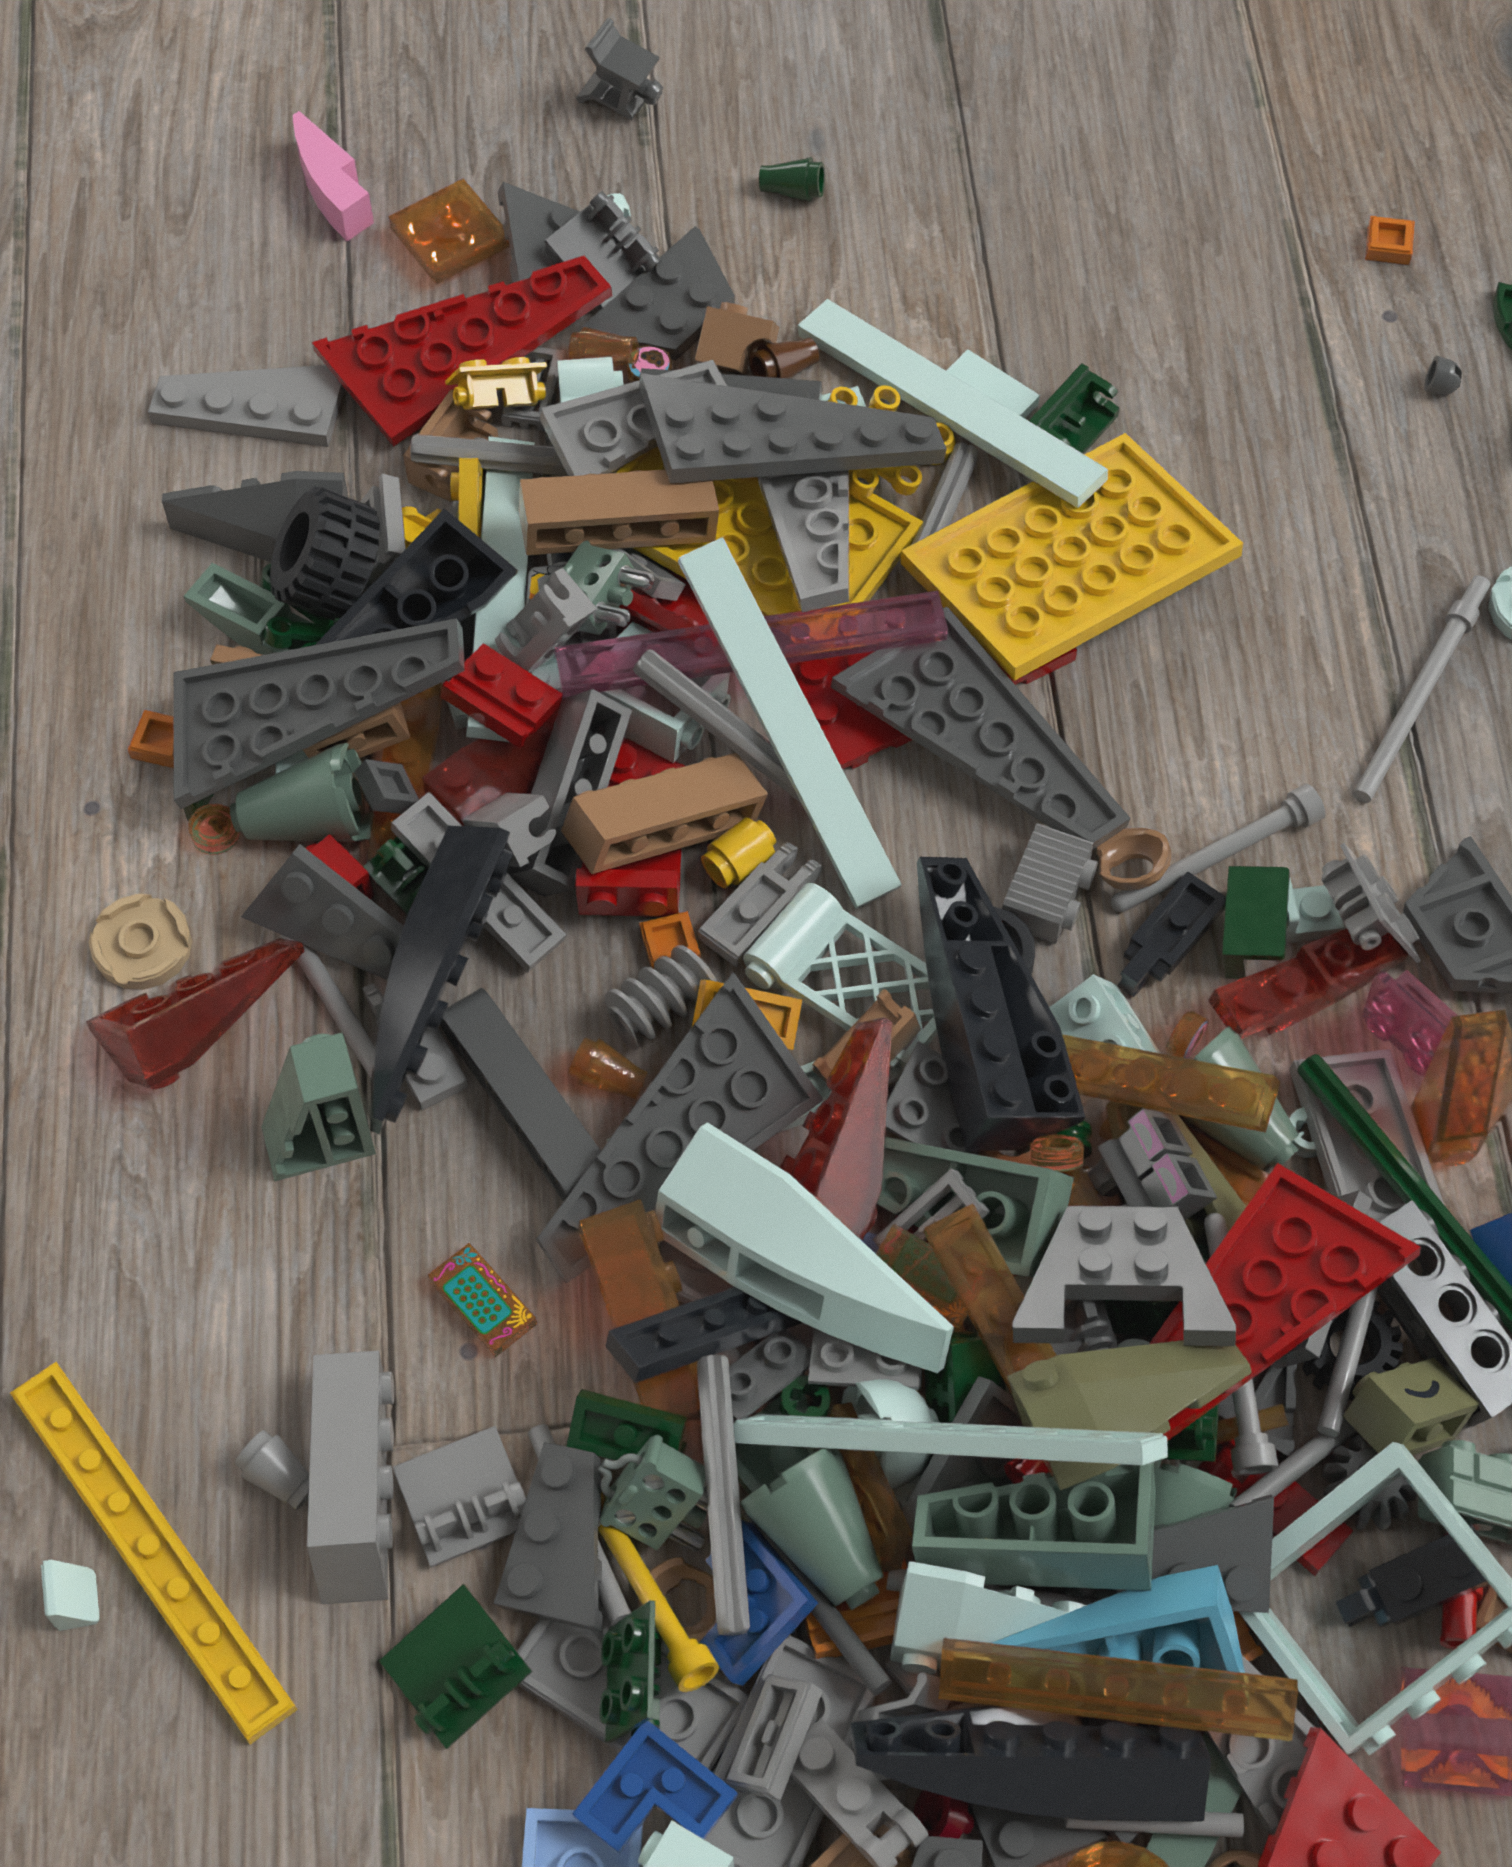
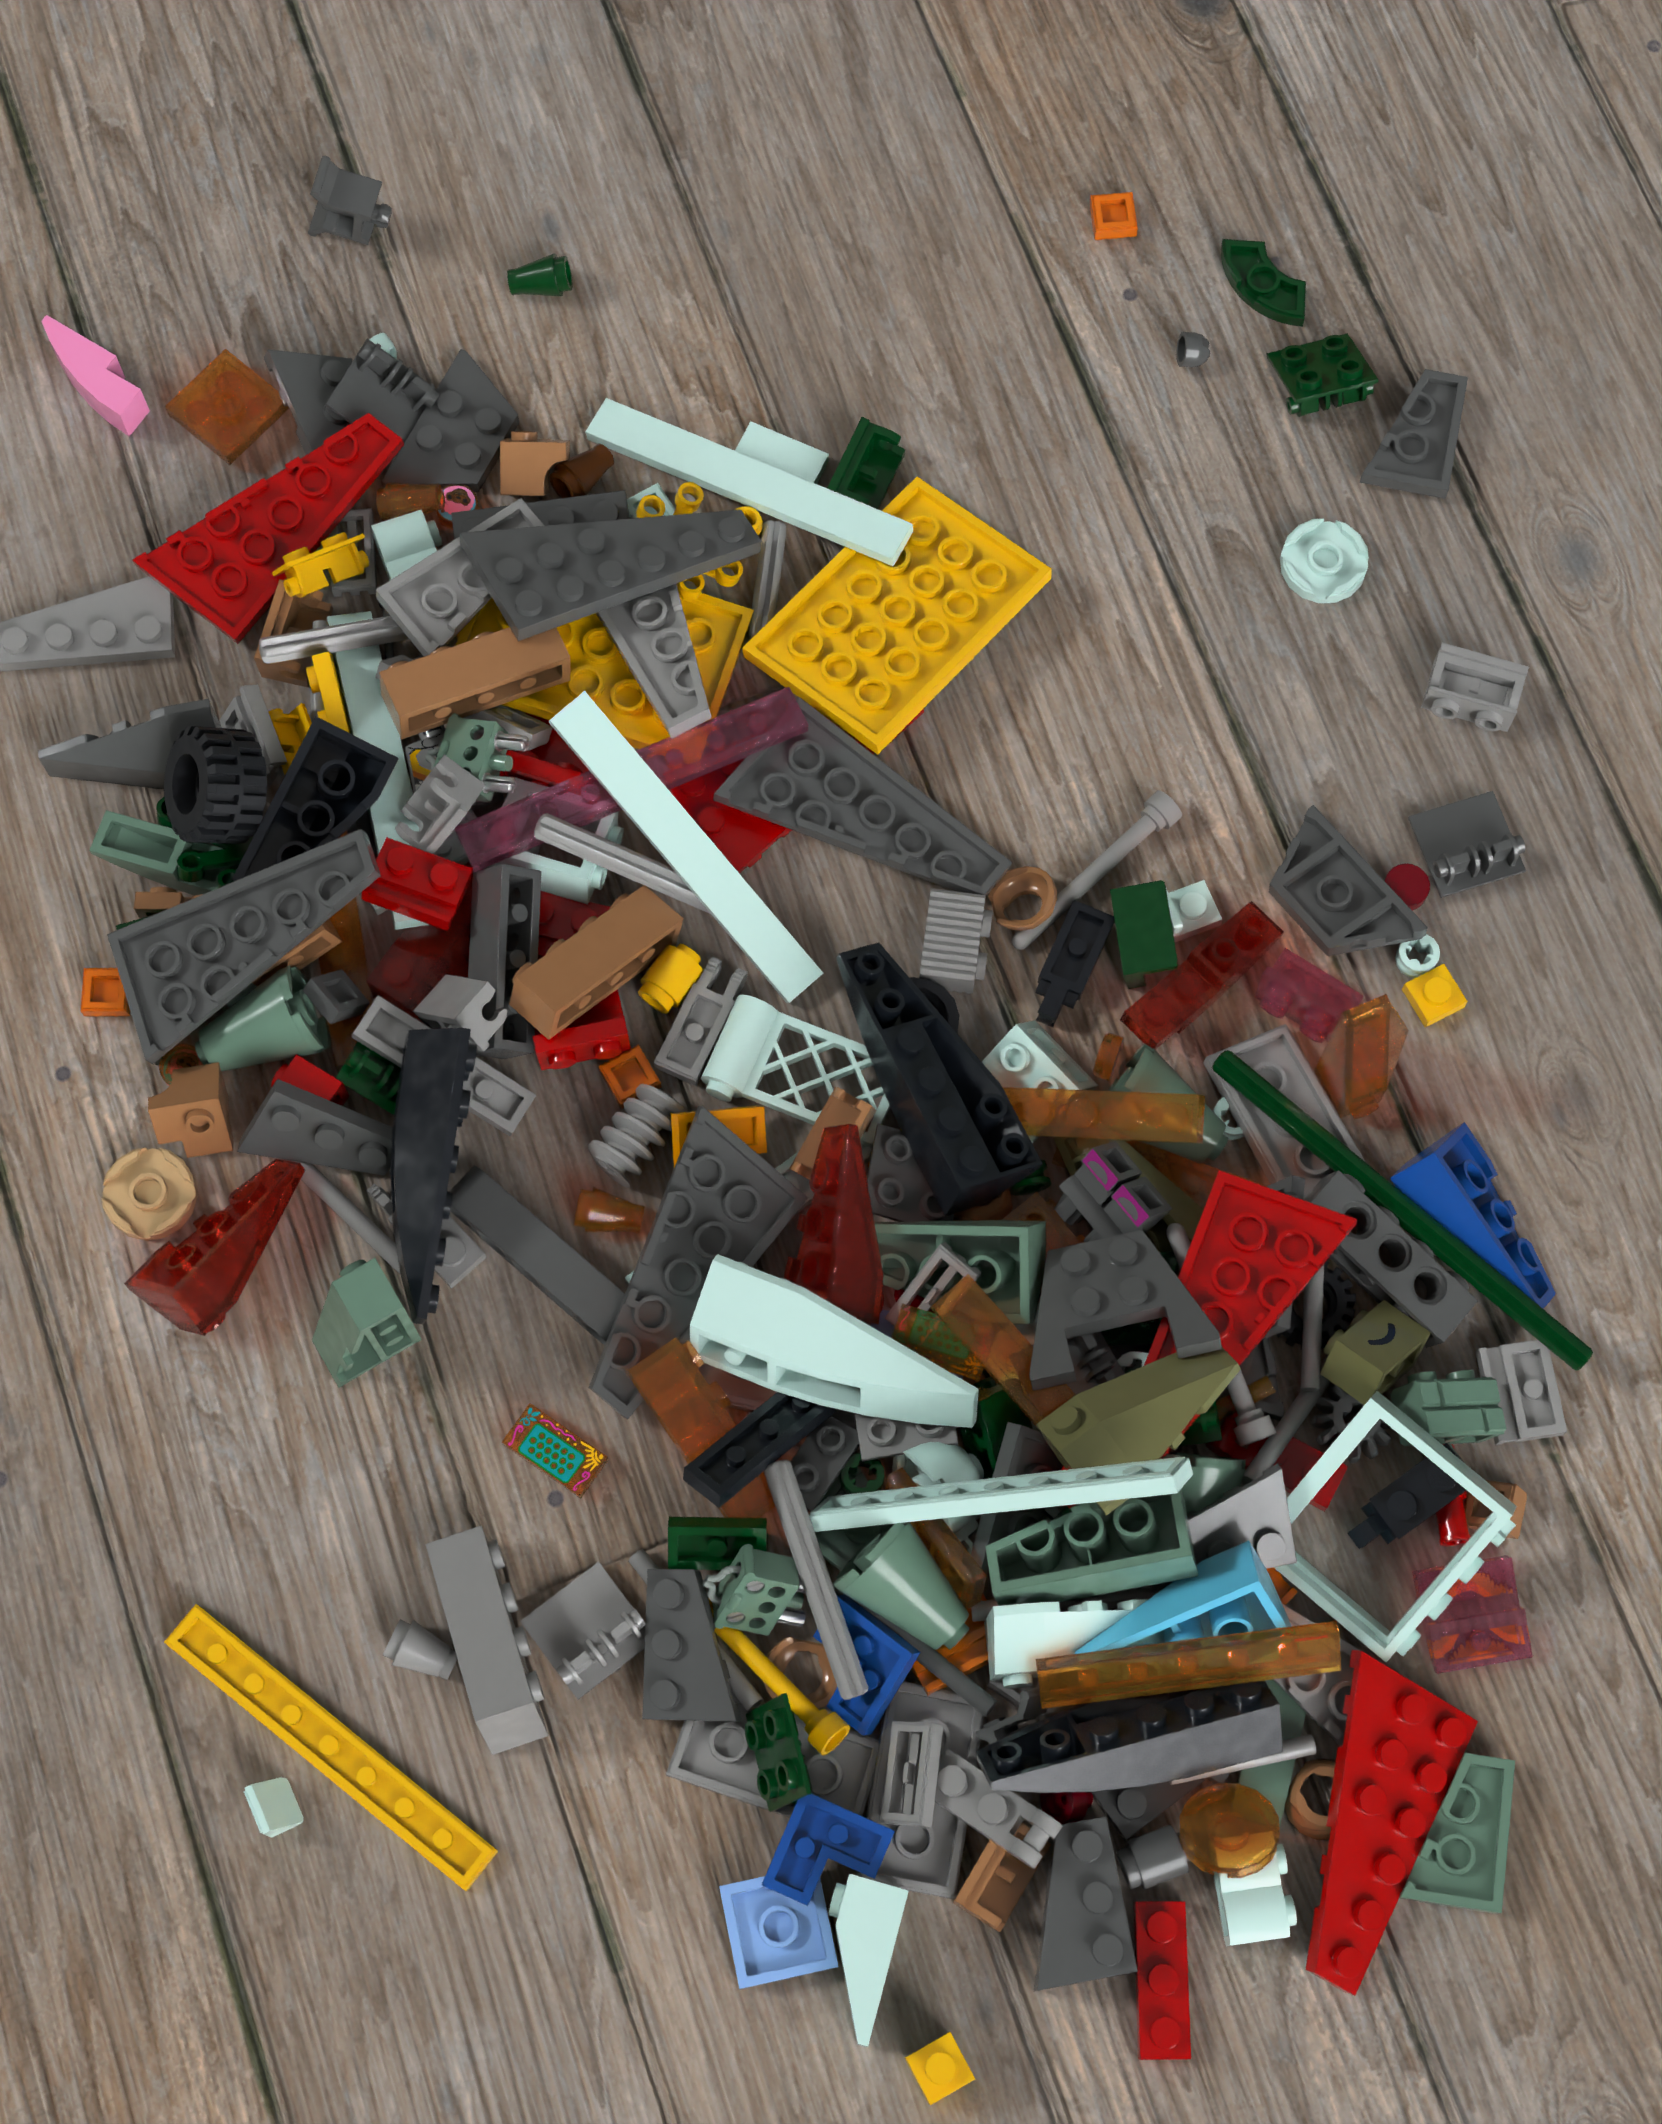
camera: 15 degrees left, 10 degrees up
(209, 868) = (194, 1111): none -> medium nougat brick
(455, 1667) = (624, 1782): dark green hinge -> none
(1057, 1152) = (1025, 1201): clear orange tile -> none
(1367, 903) = (1239, 897): light grey hinge -> none
(1459, 621) = (1259, 593): light grey bar -> none

